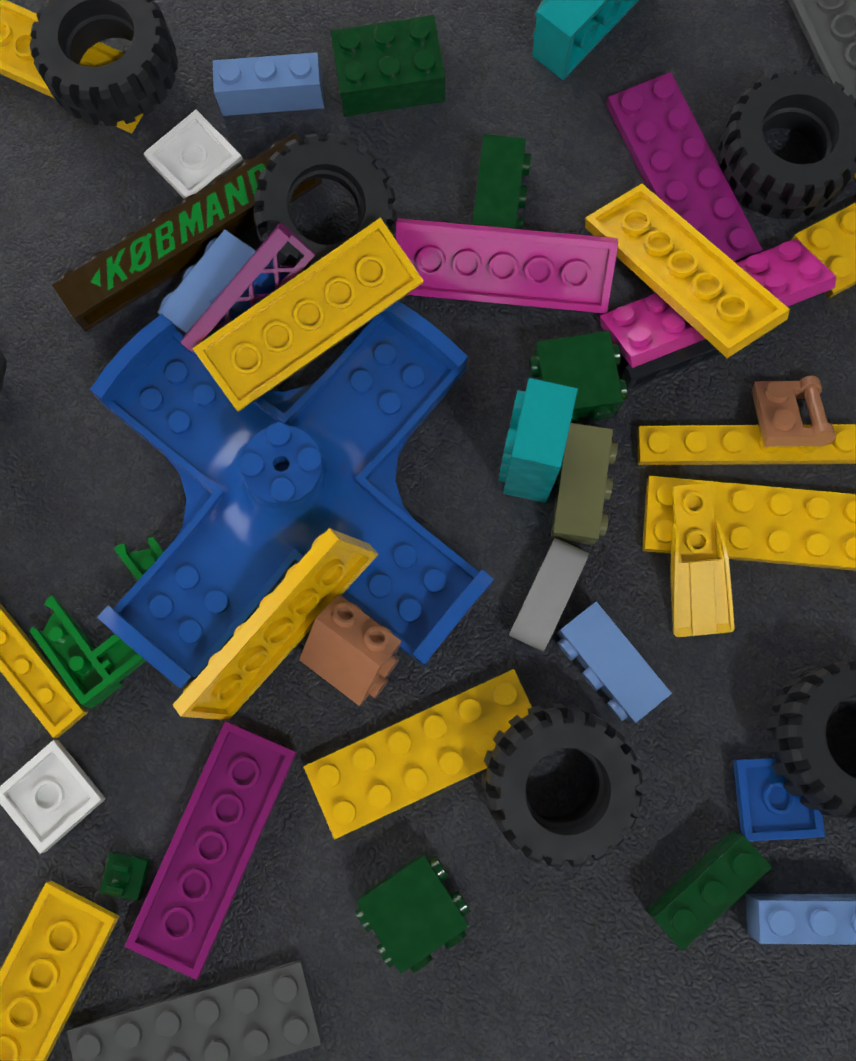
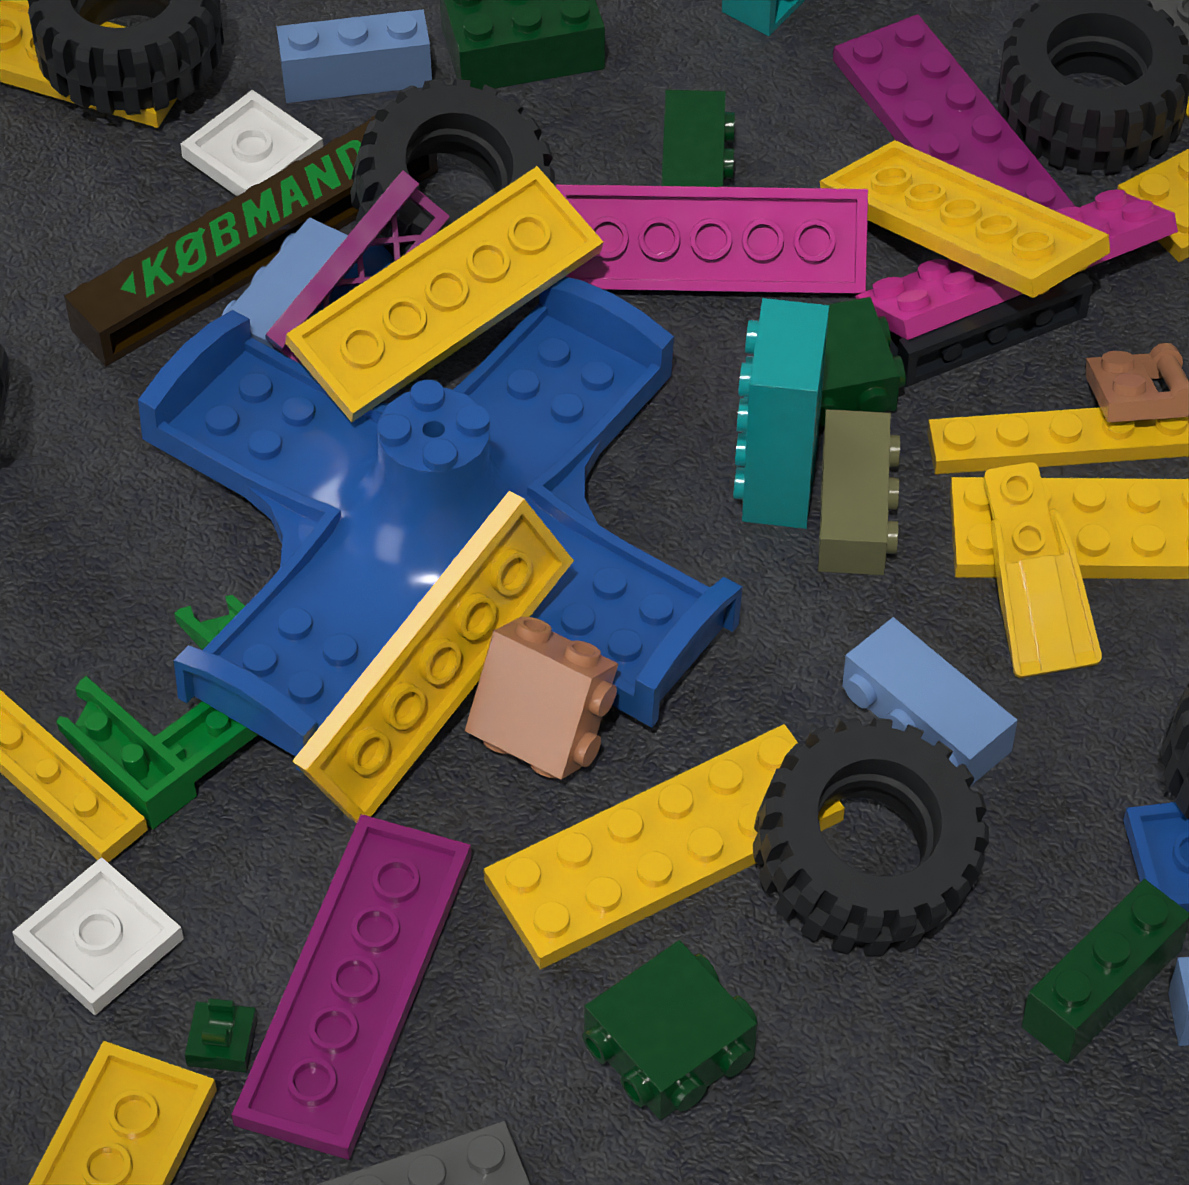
camera: 10 degrees left, 25 degrees down
(549, 594) = (824, 628): light grey beam -> none

